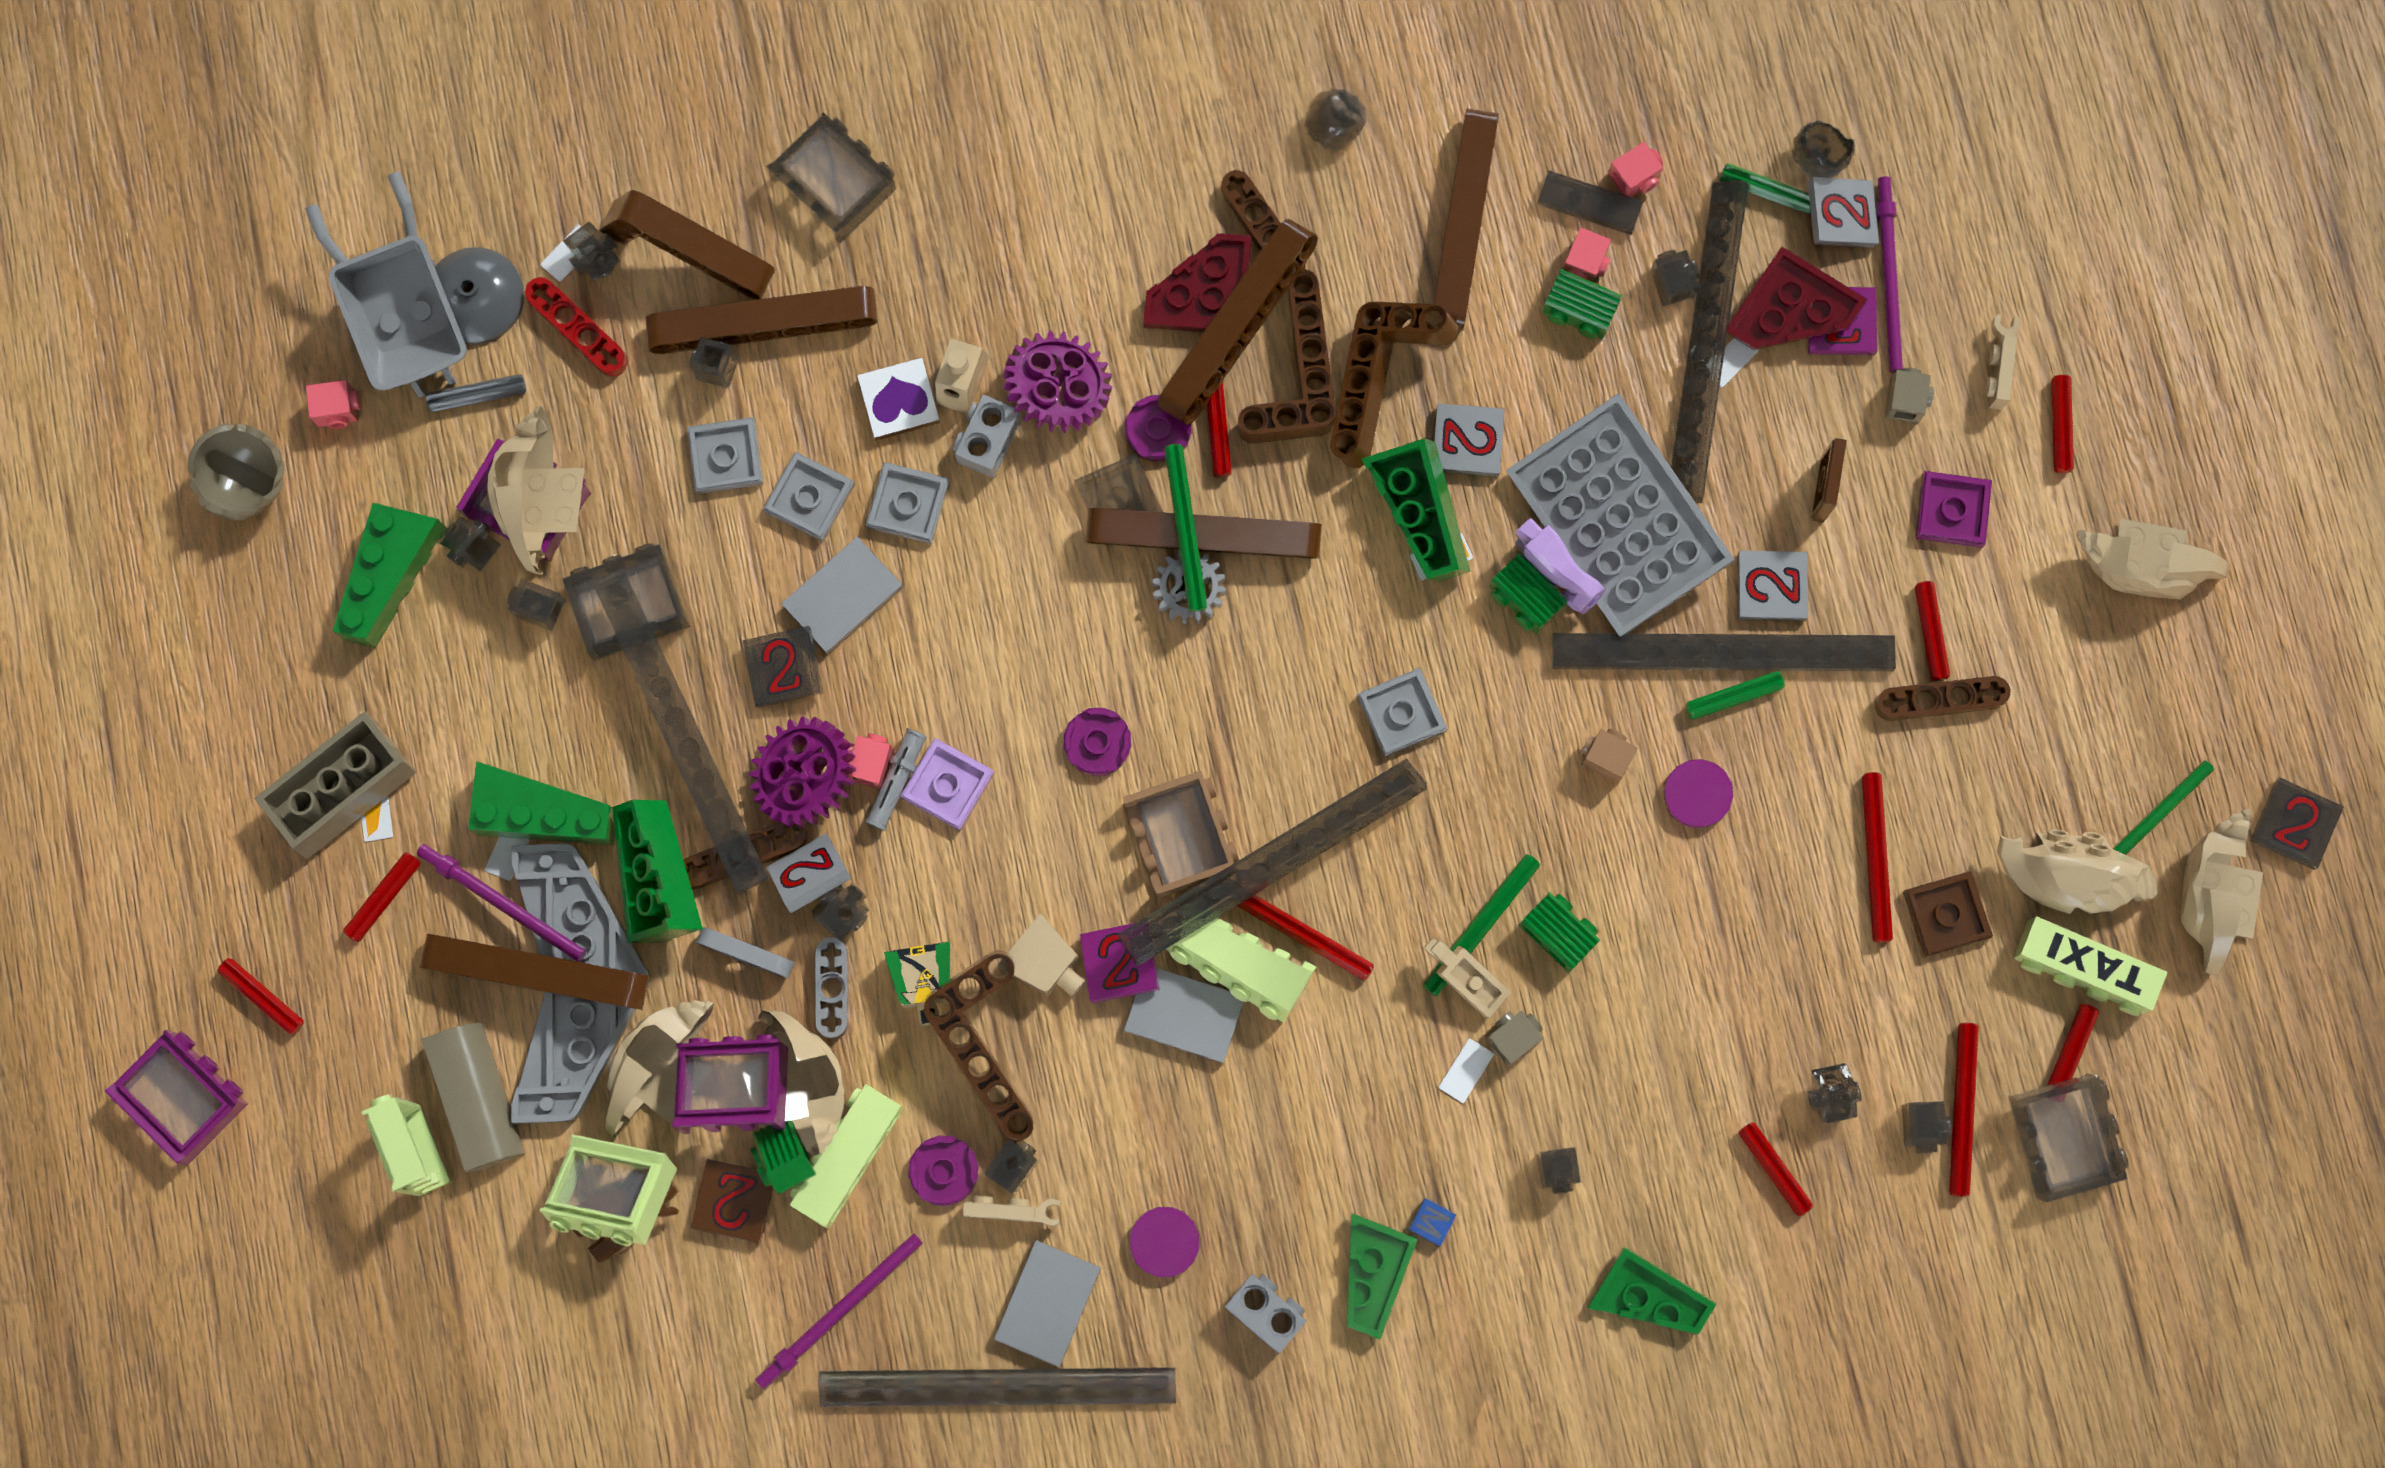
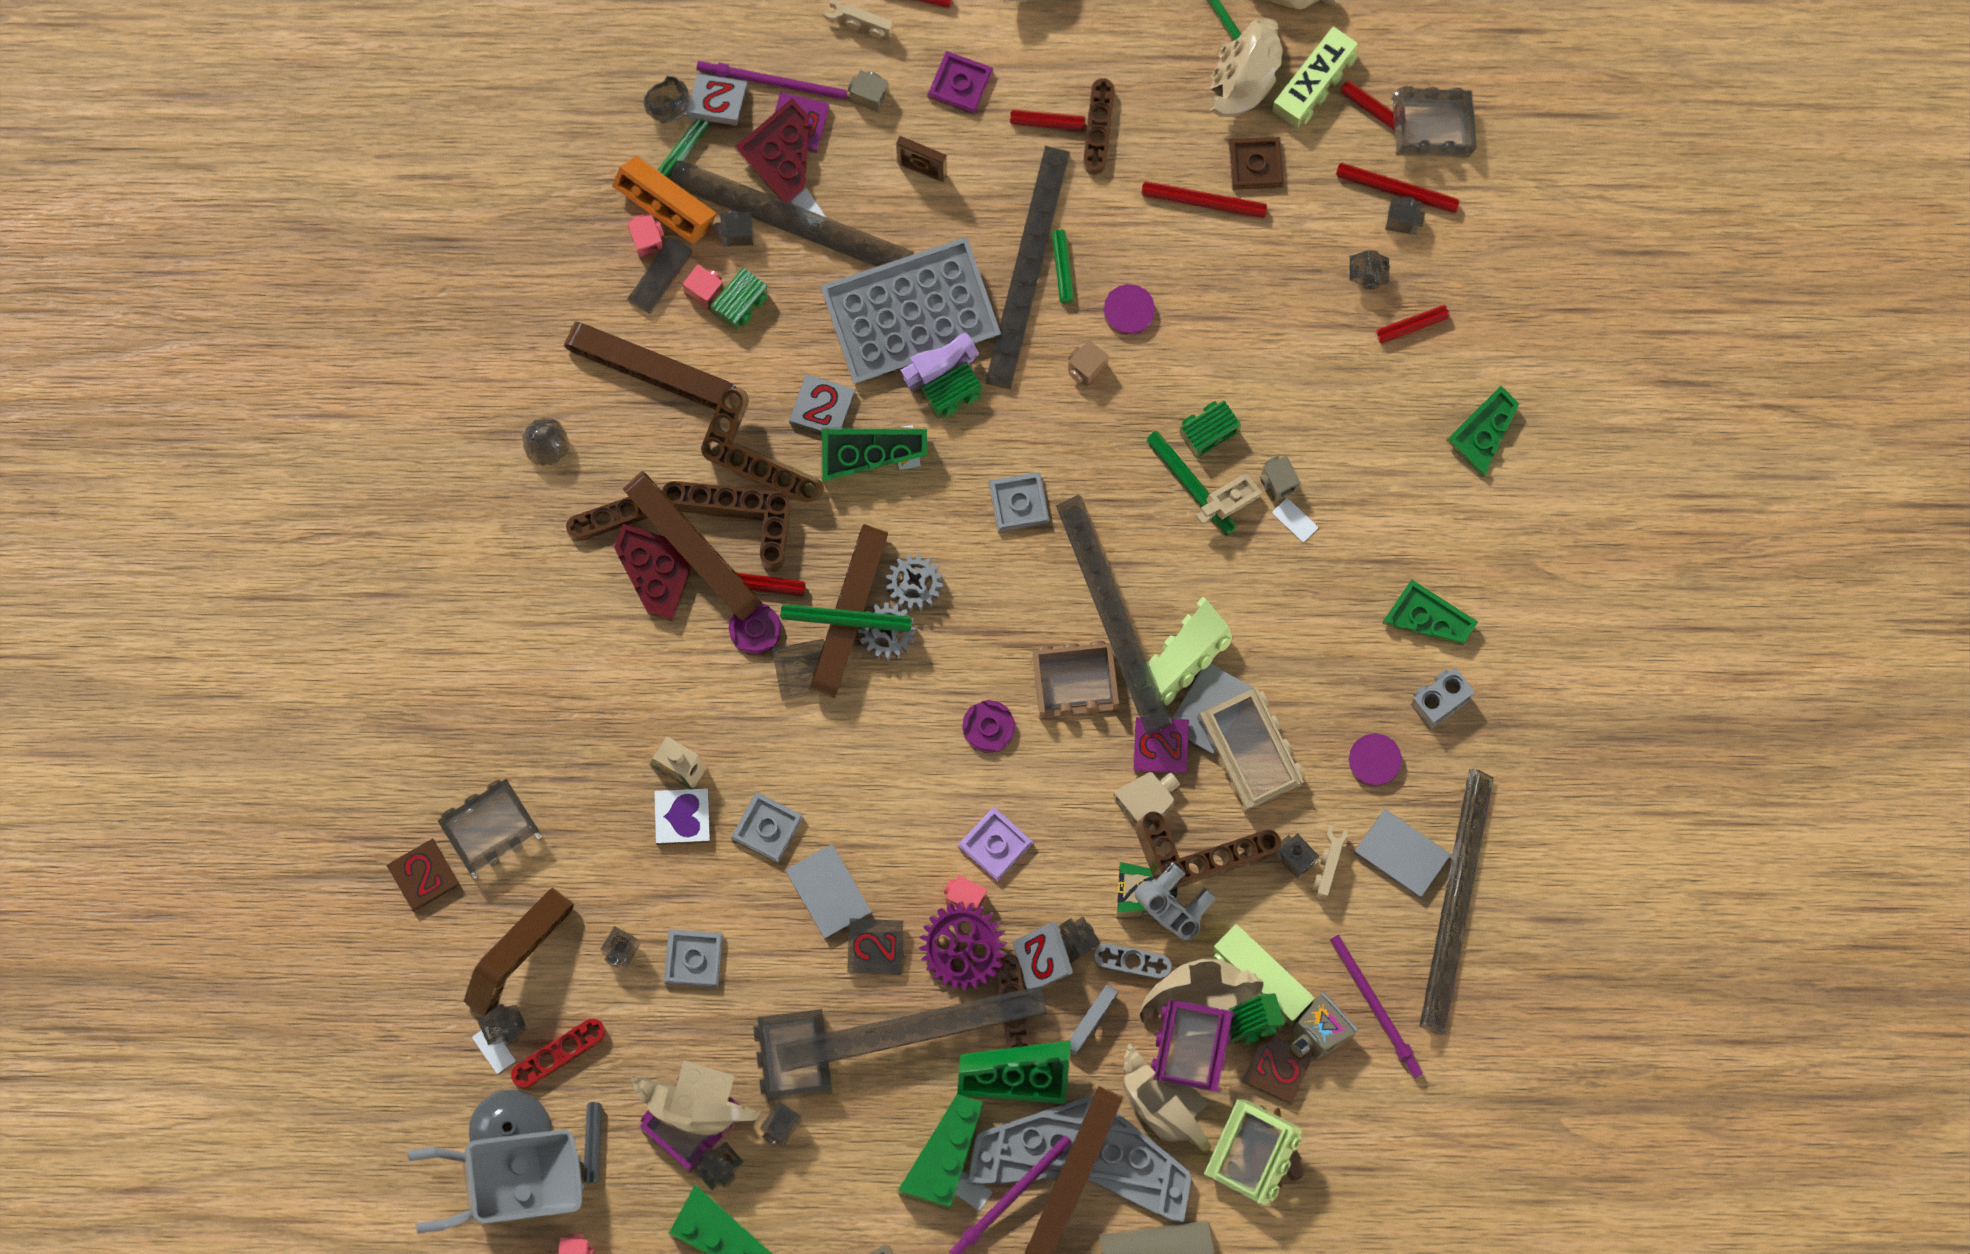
camera: 80 degrees left, 5 degrees down
(761, 118) = (423, 874): none -> reddish brown tile
(762, 319) = (592, 907): reddish brown beam -> none
(789, 1244) = (1322, 1029): none -> dark tan torso
(809, 496) = (743, 901): light grey tile -> none
(895, 1018) = (1167, 909): none -> light grey piece
(896, 779) = (957, 861): light grey pin -> none
(943, 1170) = (1288, 908): magenta tile -> none
(995, 438) = (735, 750): light grey brick -> none
(1086, 380) = (702, 691): magenta gear -> none
(1137, 1076) = (1252, 748): none -> window
(1250, 595) = (923, 576): none -> light grey gear
(1307, 936) = (1174, 604): red axle -> none
(1432, 1222) = (1400, 568): blue tile -> none
(1558, 1170) = (1382, 469): clear smoke brick -> none
(1688, 179) = (664, 199): none -> orange brick
(1772, 585) = (987, 220): light grey tile -> none

